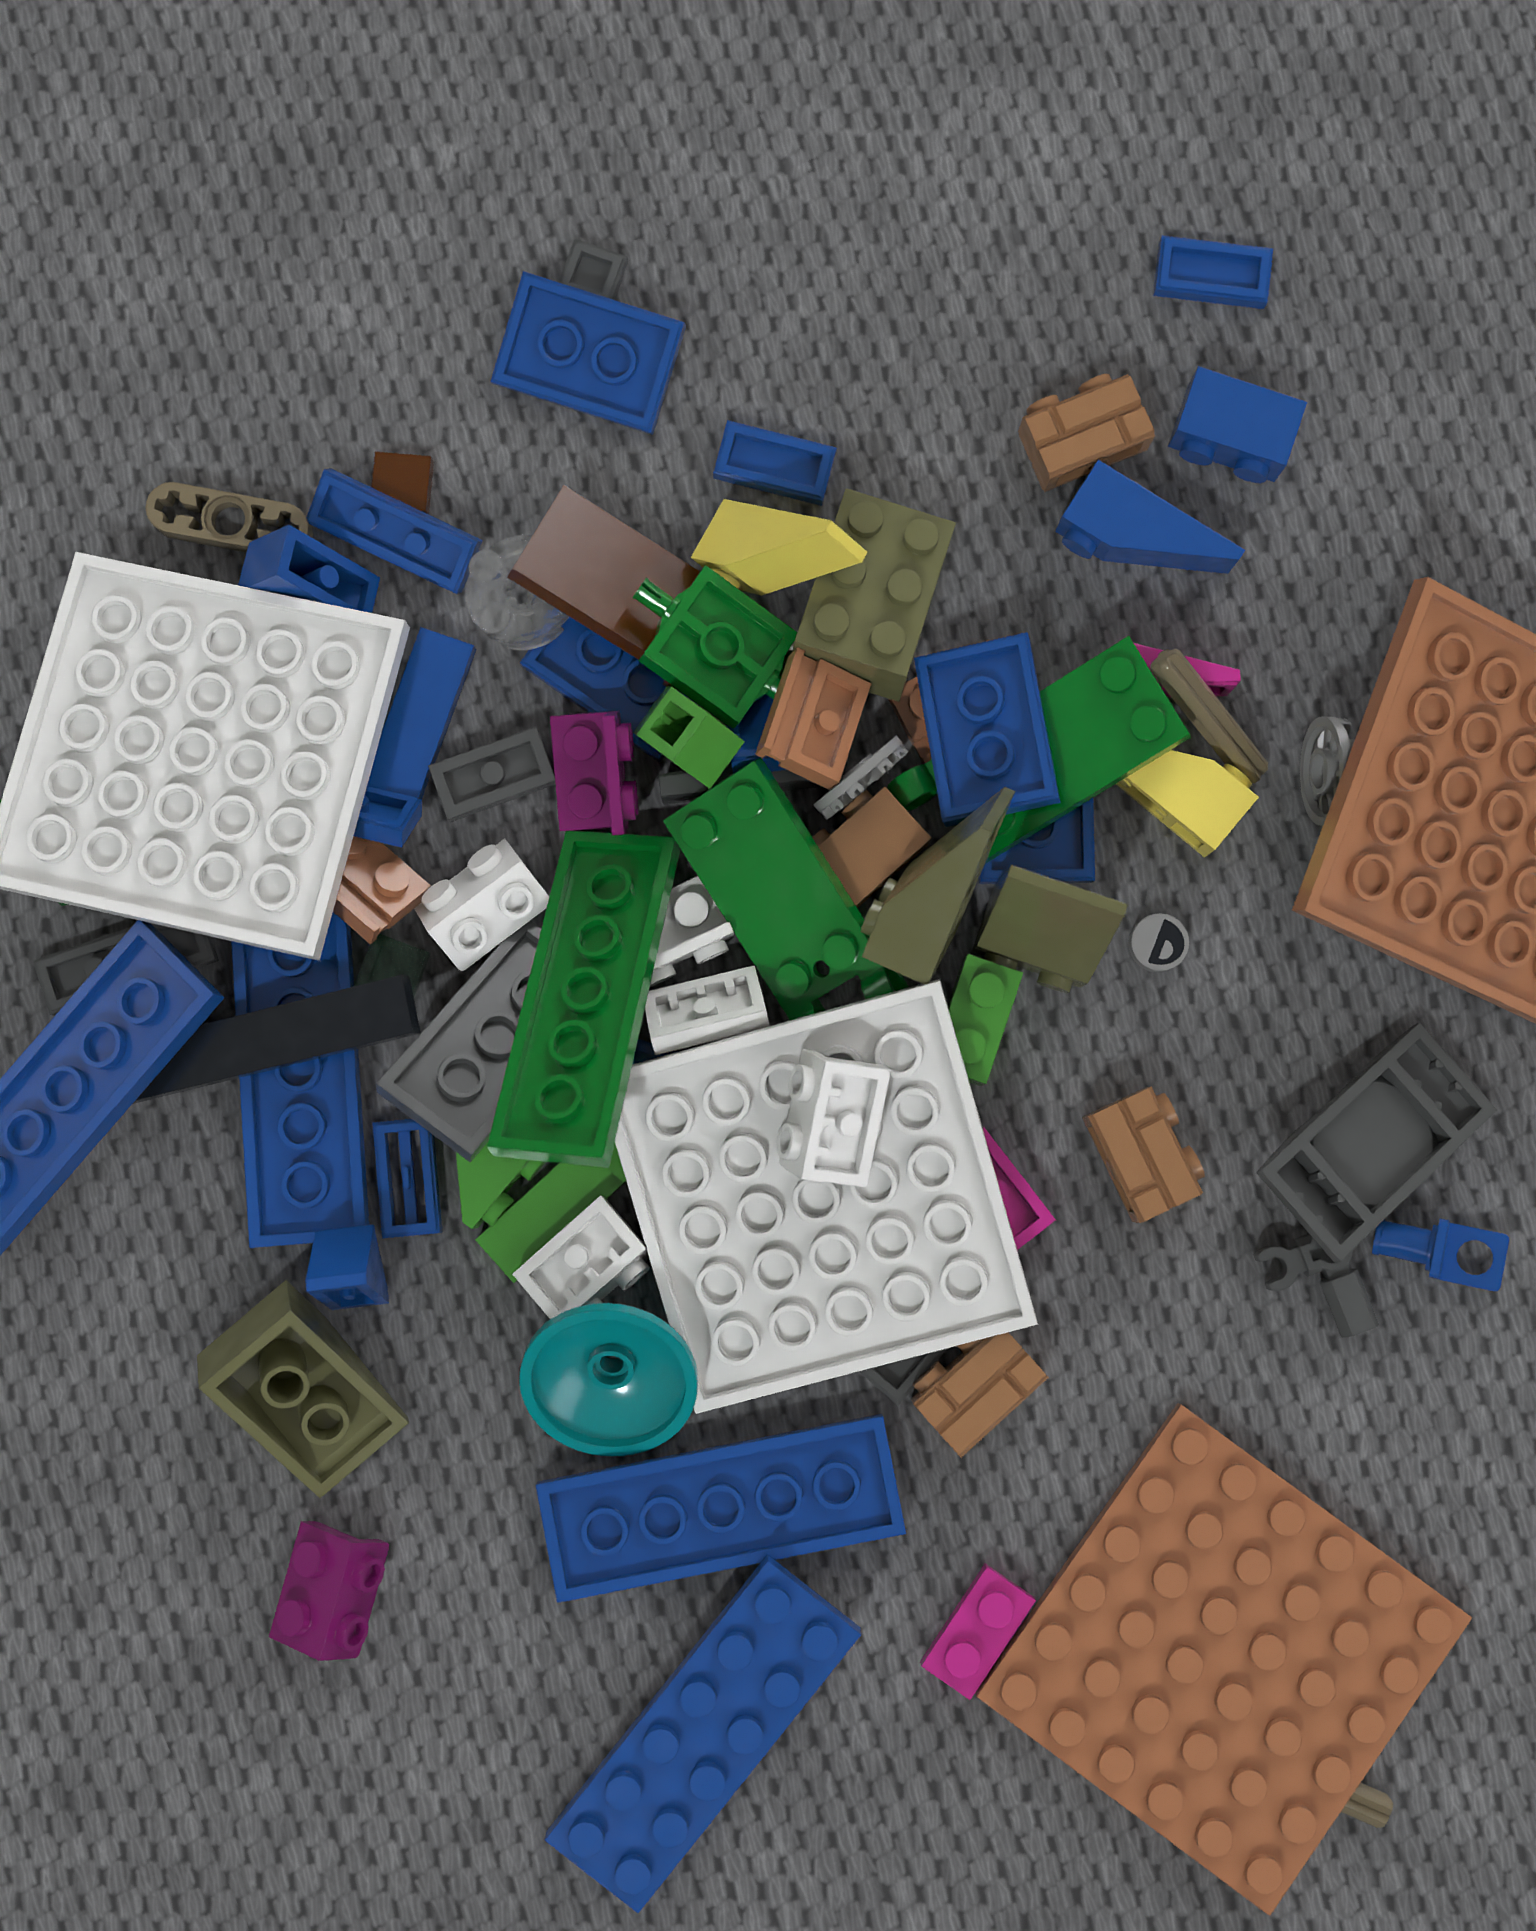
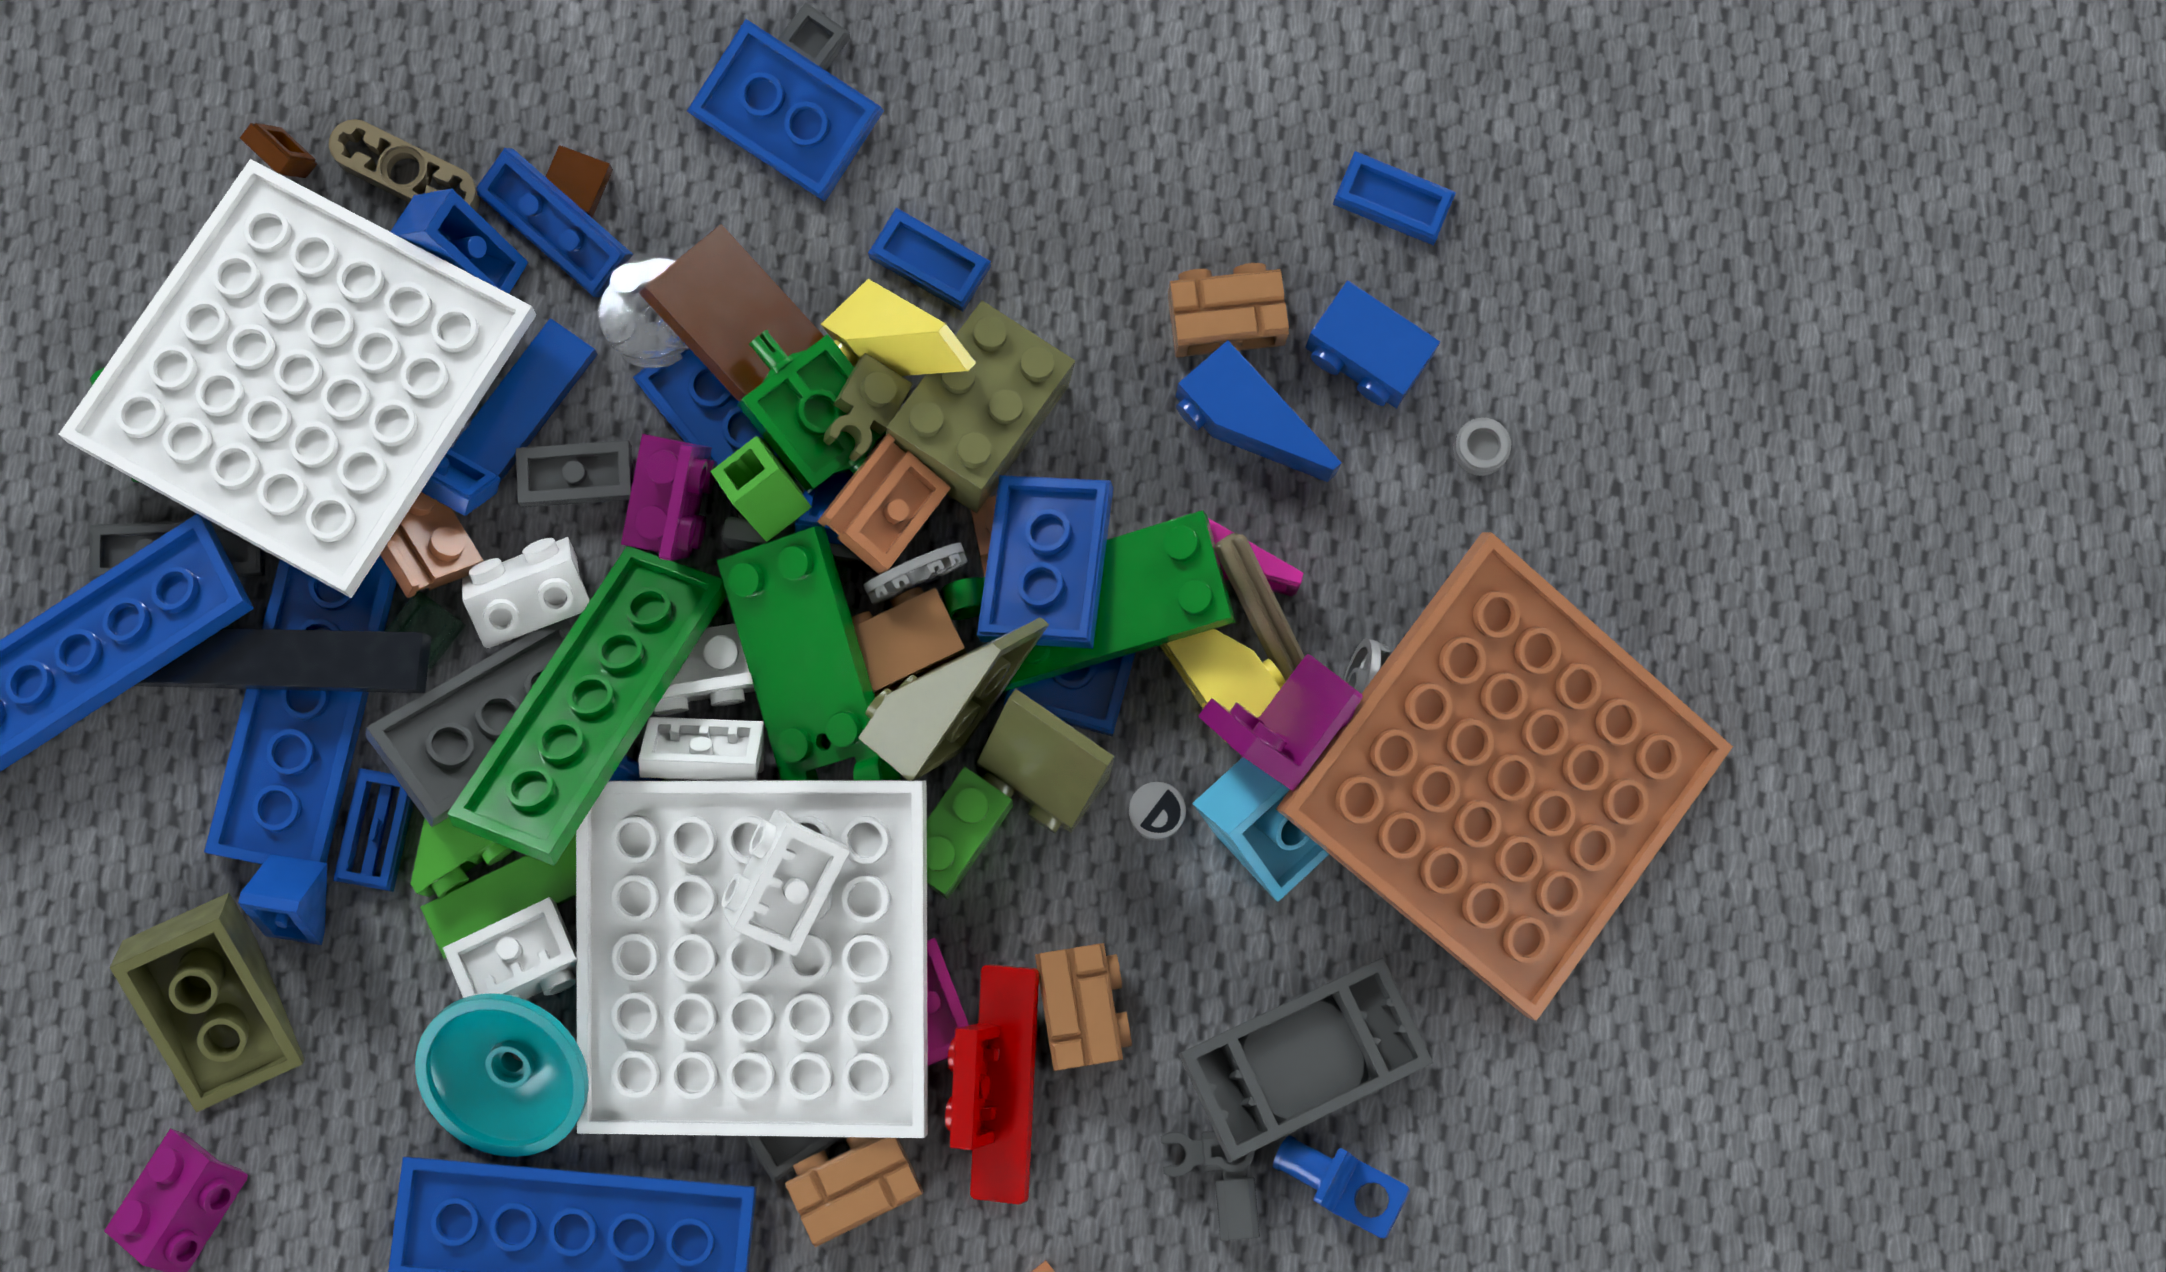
camera: 10 degrees right, 5 degrees down
(99, 535) = (279, 150): none -> reddish brown tile
(769, 620) = (871, 402): none -> olive plate
(1087, 1250) = (996, 1084): none -> red bracket
(1254, 914) = (1245, 819): none -> medium azure slope
(1282, 820) = (1294, 724): none -> magenta bracket
(1370, 495) = (1482, 446): none -> light grey tile

